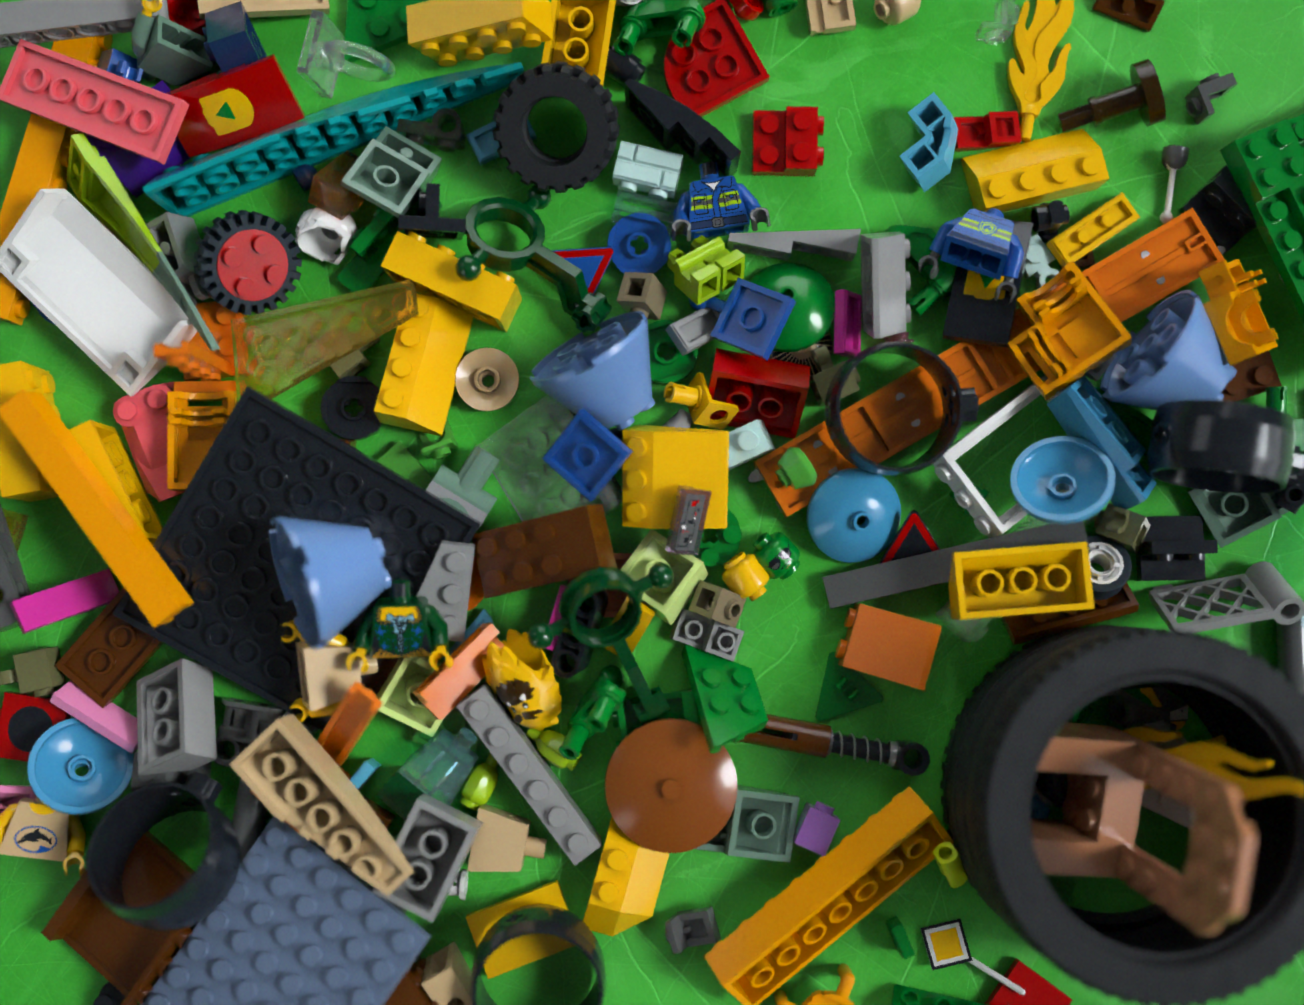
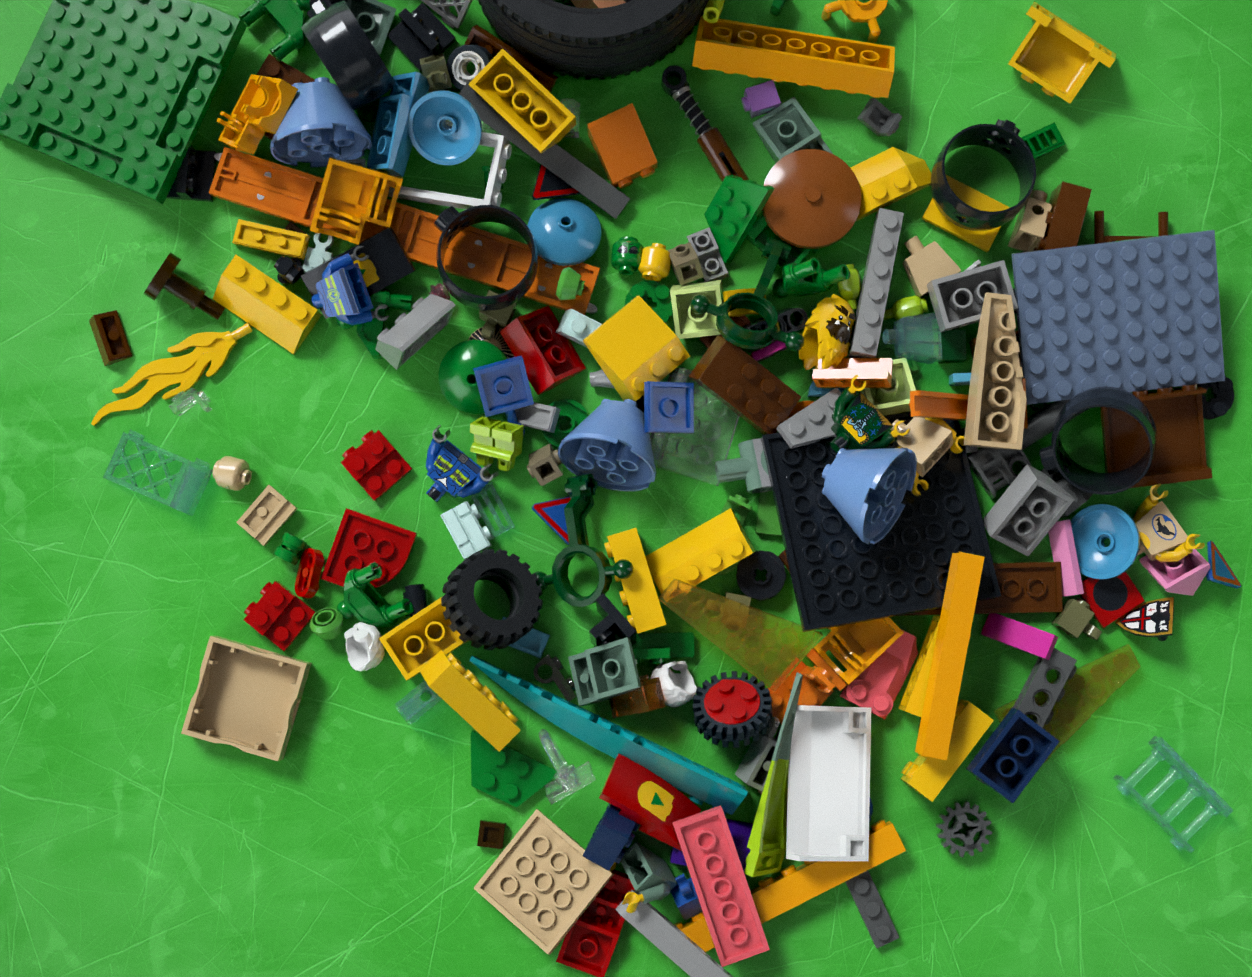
camera: 130 degrees left, 0 degrees up
(304, 176) = (650, 730): dark blue hinge -> none
(475, 368) = (674, 499): tan dish -> none
(654, 233) = (519, 481): blue plate -> none
(676, 123) = (427, 539): black slope -> none
(688, 520) = (654, 318): slope -> none
(700, 402) = (576, 380): yellow bracket -> none
(778, 245) = (441, 411): light grey slope -> none
(844, 691) = (670, 150): green piece -> none
(847, 323) = (454, 332): dark pink tile -> none
(933, 154) = (308, 368): medium azure brick -> none
(987, 131) = (265, 353): red slope -> none
(1173, 158) = (186, 228): hinge -> none
(1199, 99) = (123, 243): dark grey bracket -> none

